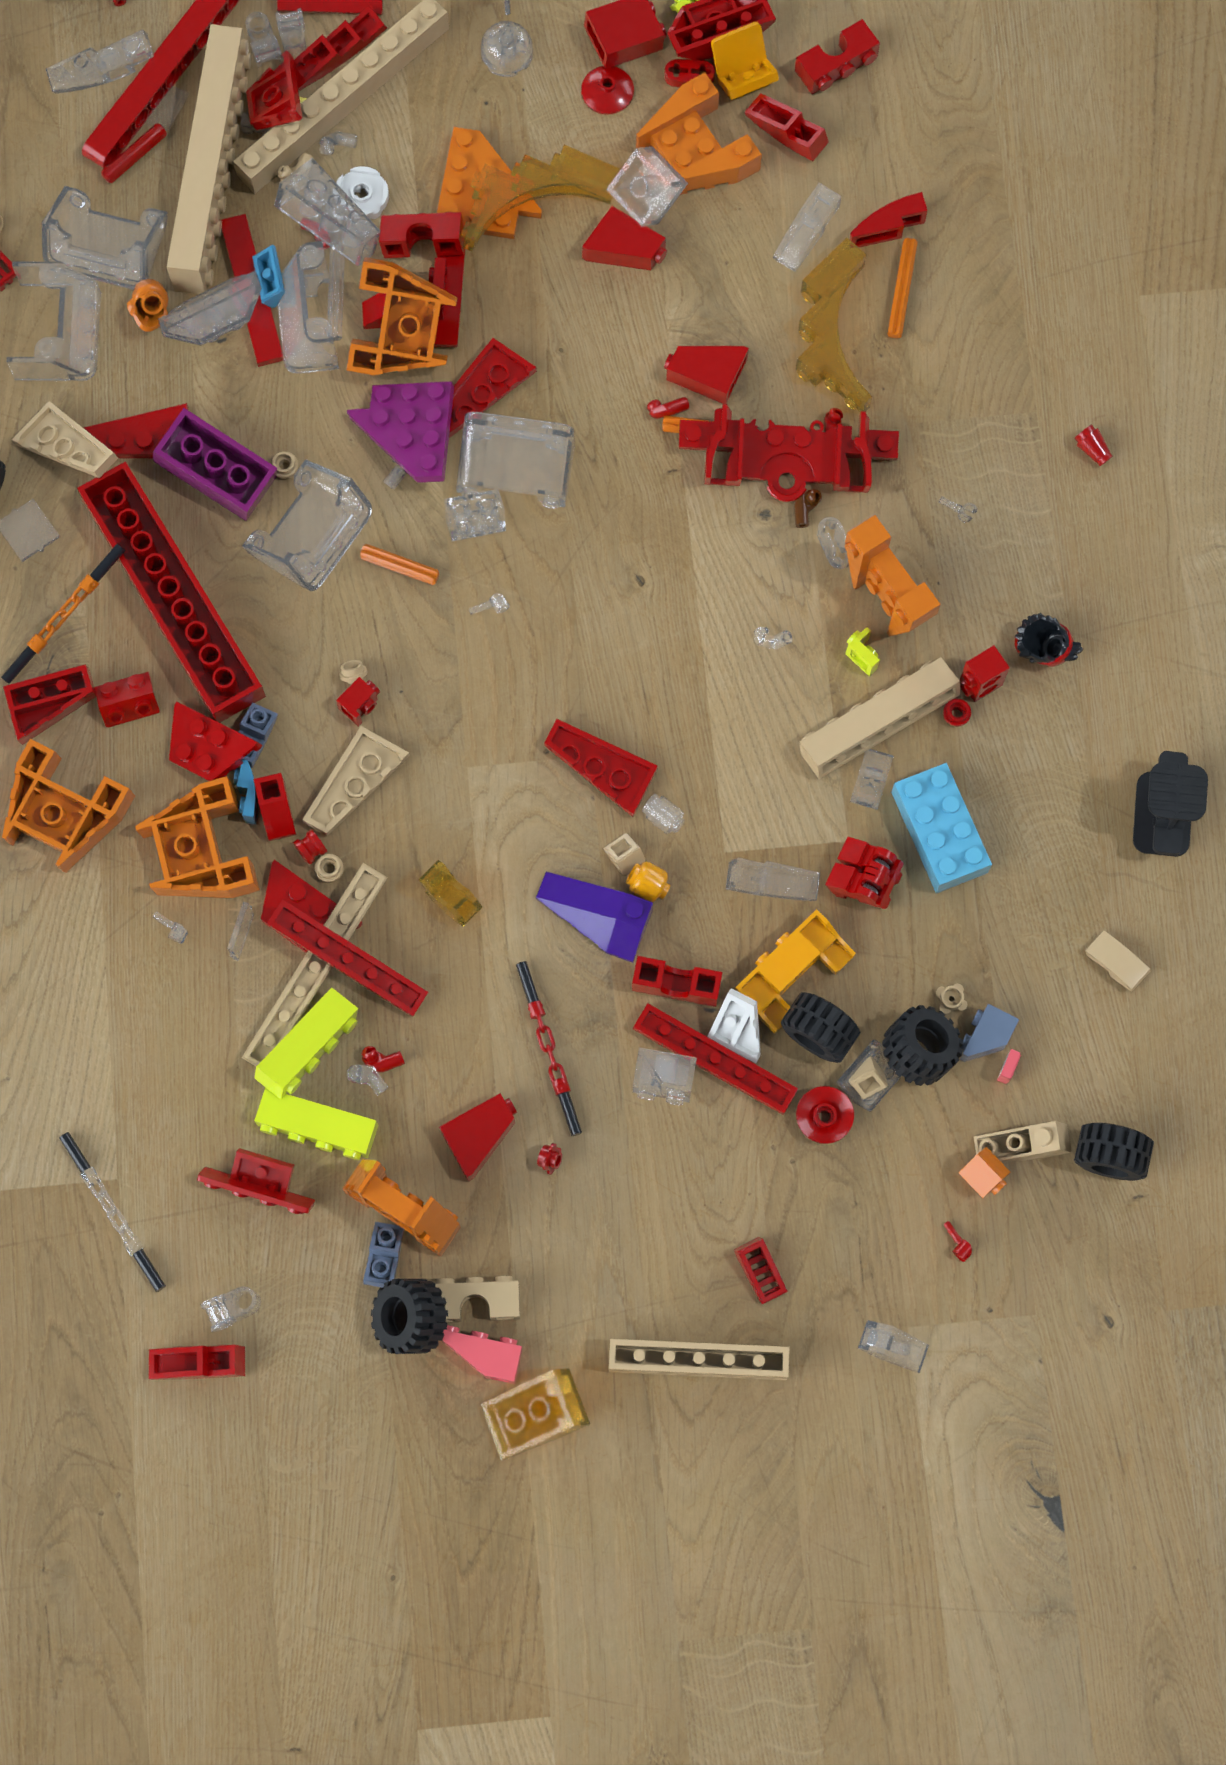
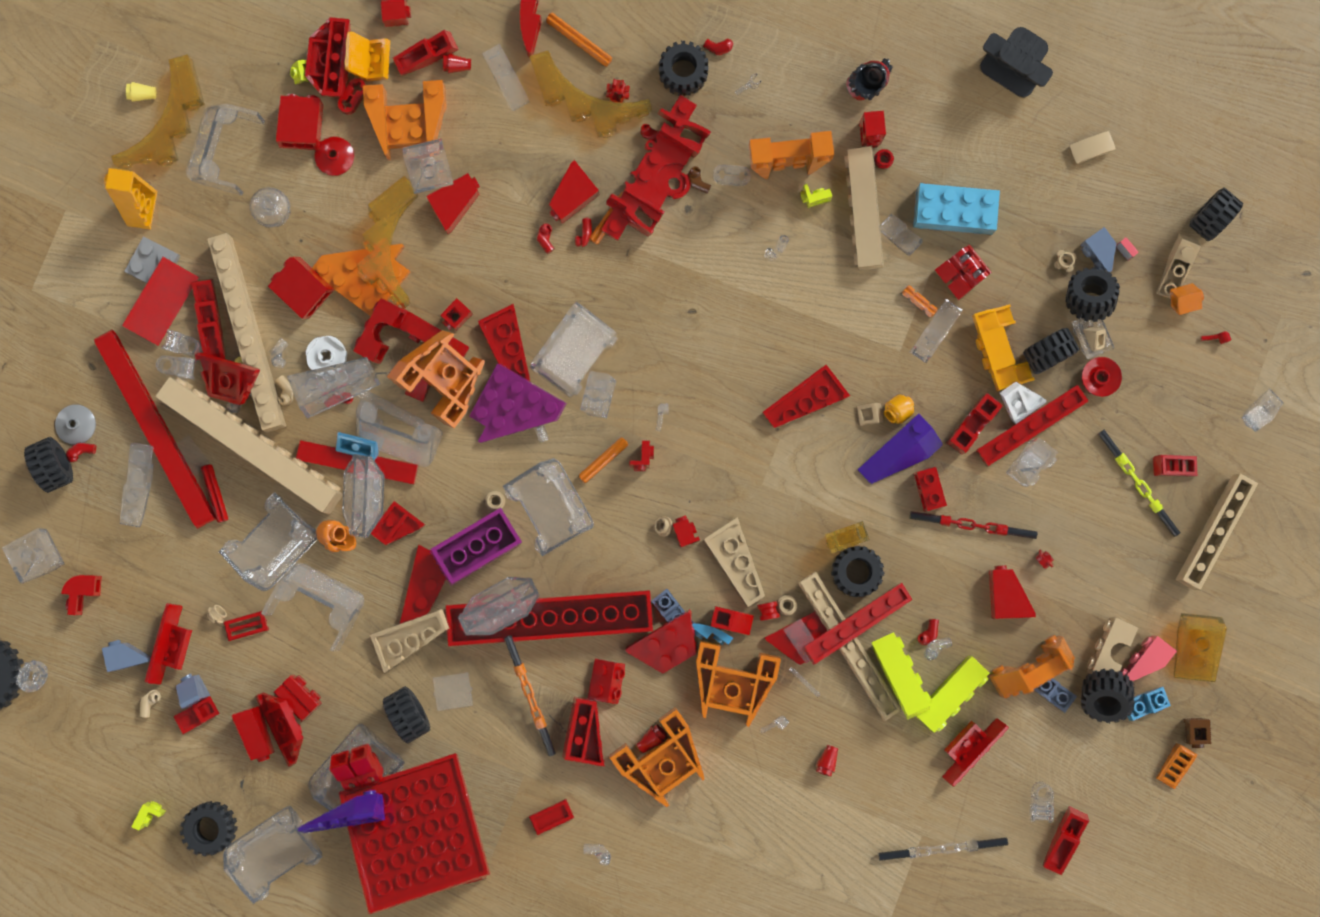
camera: 65 degrees left, 10 degrees up
(80, 784) = (652, 738): none -> red cone
(149, 515) = (499, 606): none -> clear wedge
(155, 1011) = (827, 761): none -> red cone
(198, 366) = (396, 524): none -> red wing
(296, 891) = (799, 636): none -> clear slope
(389, 1462) = (1174, 755): none -> orange slope
(407, 907) = (875, 571): none -> black tyre
(425, 1454) = (1204, 732): none -> reddish brown brick
(426, 605) = (647, 454): none -> red bracket
(427, 124) = (300, 287): none -> red brick
(427, 1383) = (1149, 703): none -> dark azure slope
(487, 302) = (455, 307): none -> red brick
(565, 968) = (930, 489): none -> red brick
(636, 365) = (543, 237): none -> red arm
(663, 814) = (859, 376): clear brick -> none
(694, 1268) = (1155, 505): none -> piece
(792, 164) = (455, 63): none -> red cone
(800, 842) = (921, 302): none -> orange axle
(862, 359) = (617, 91): none -> red gear
(939, 400) = (688, 53): none -> black tyre
(985, 452) = (718, 48): none -> red arm

